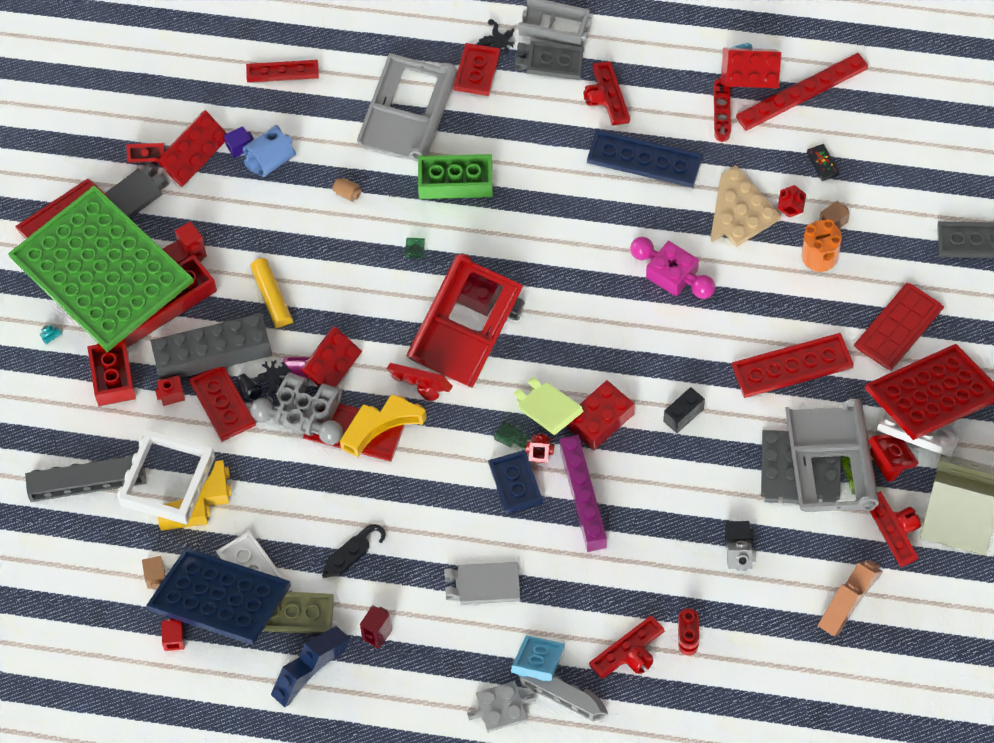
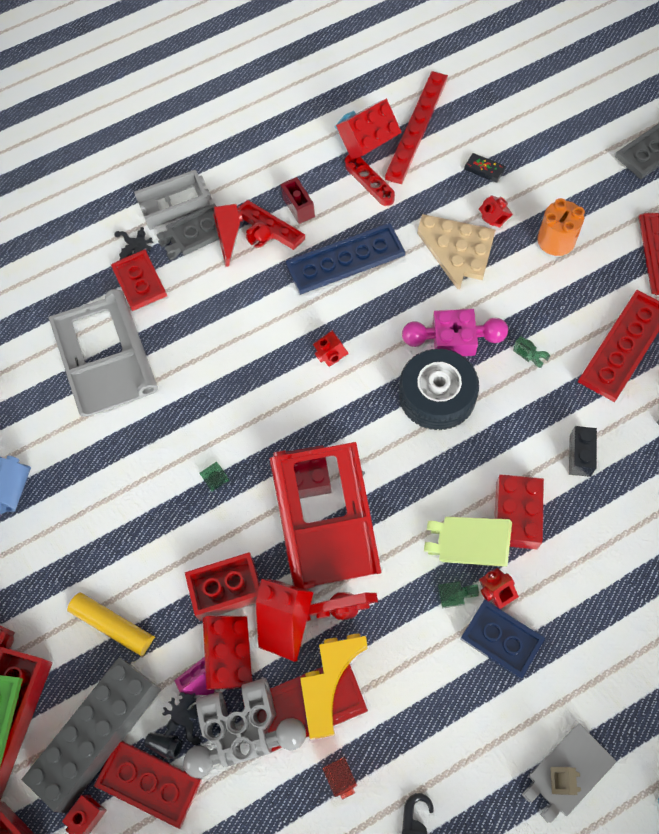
camera: 35 degrees left, 5 degrees up
(340, 481) = (340, 778): none -> clear red brick
(347, 189) = (105, 466): medium nougat brick -> none
(363, 320) = (223, 586): none -> red brick
(382, 362) = (281, 617): none -> red slope
(455, 176) = (198, 384): bright green brick -> none
(474, 578) = (564, 781): none -> dark tan tile
(570, 216) = (330, 349): none -> red brick
(574, 75) = (227, 223): none -> red slope
(583, 493) = (576, 602): magenta brick -> none
(621, 297) = (438, 389): none -> black wheel
(646, 88) = (297, 200): none -> dark red brick
(714, 317) = (527, 350): none -> clear green plate
(837, 213) = (537, 201): medium nougat brick -> none

